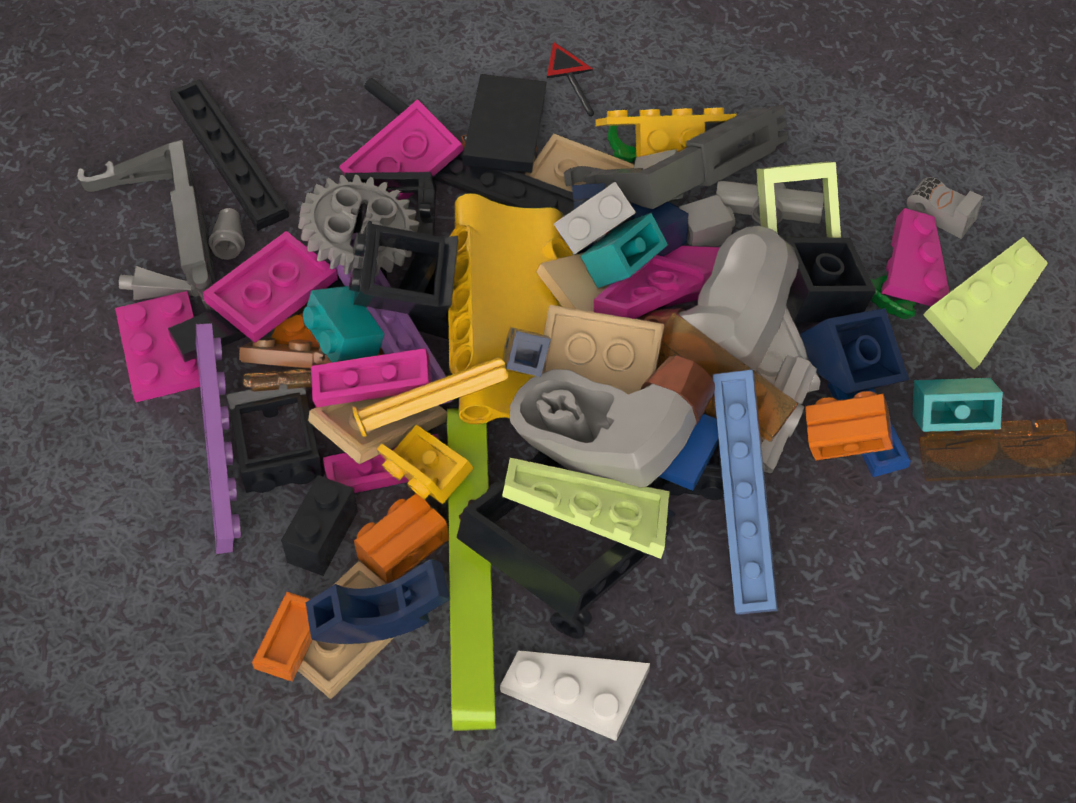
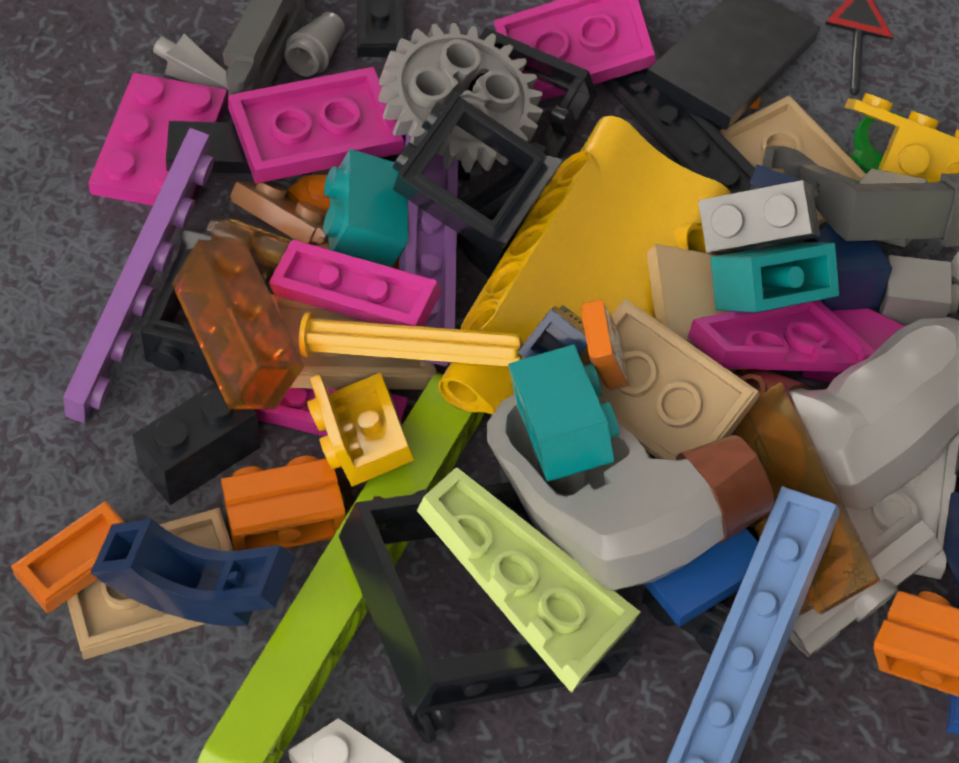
camera: 25 degrees right, 0 degrees up
(309, 436) = (237, 325): none -> clear orange brick
(560, 391) = (563, 412): none -> teal brick
(561, 338) = (604, 344): none -> orange tile

